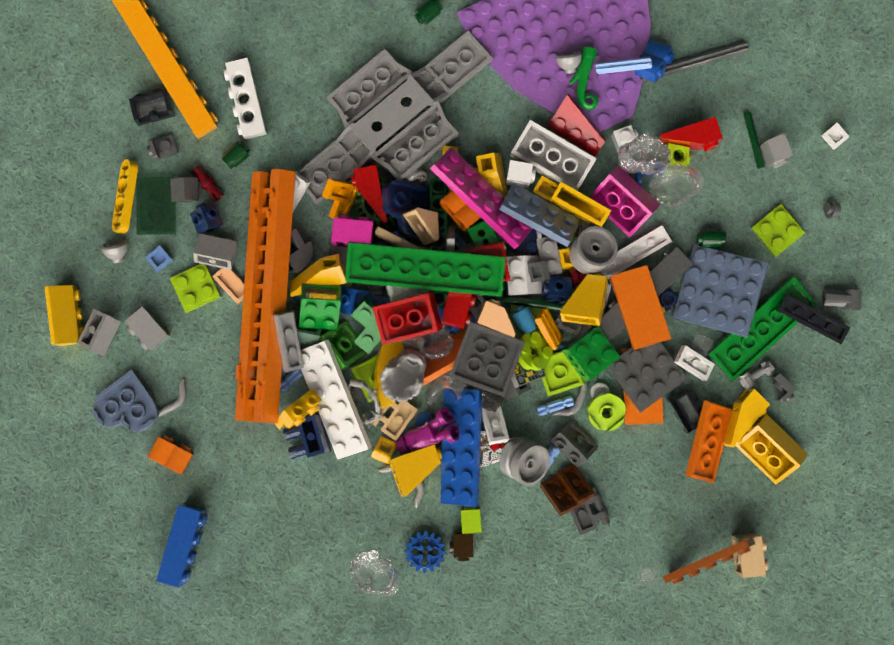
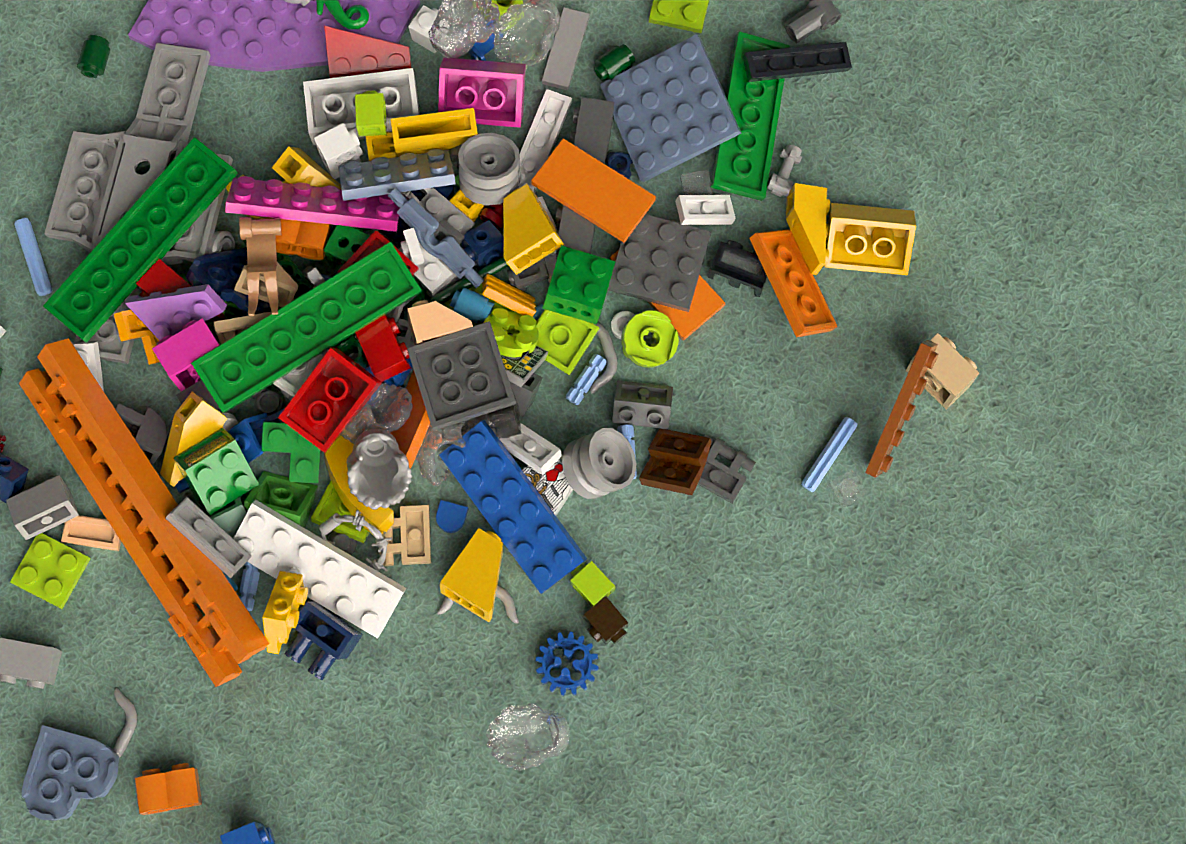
camera: 35 degrees left, 10 degrees down
(311, 103) = (33, 257): none -> light blue axle
(363, 204) = (170, 312): none -> medium lavender wing
(374, 145) = (140, 239): none -> green plate
(384, 450) = (425, 585): yellow slope -> none
(427, 434) = (461, 521): magenta piece -> none
(429, 211) = (261, 258): none -> medium nougat flag
(515, 264) = (411, 247): none -> white plate
(534, 278) = (425, 225): none -> sand blue piece
(552, 169) = (370, 113): none -> lime brick
(652, 549) = (829, 454): none -> light blue axle
(692, 208) = (566, 49): none -> light grey tile
(780, 384) = (824, 158): dark grey bracket -> none

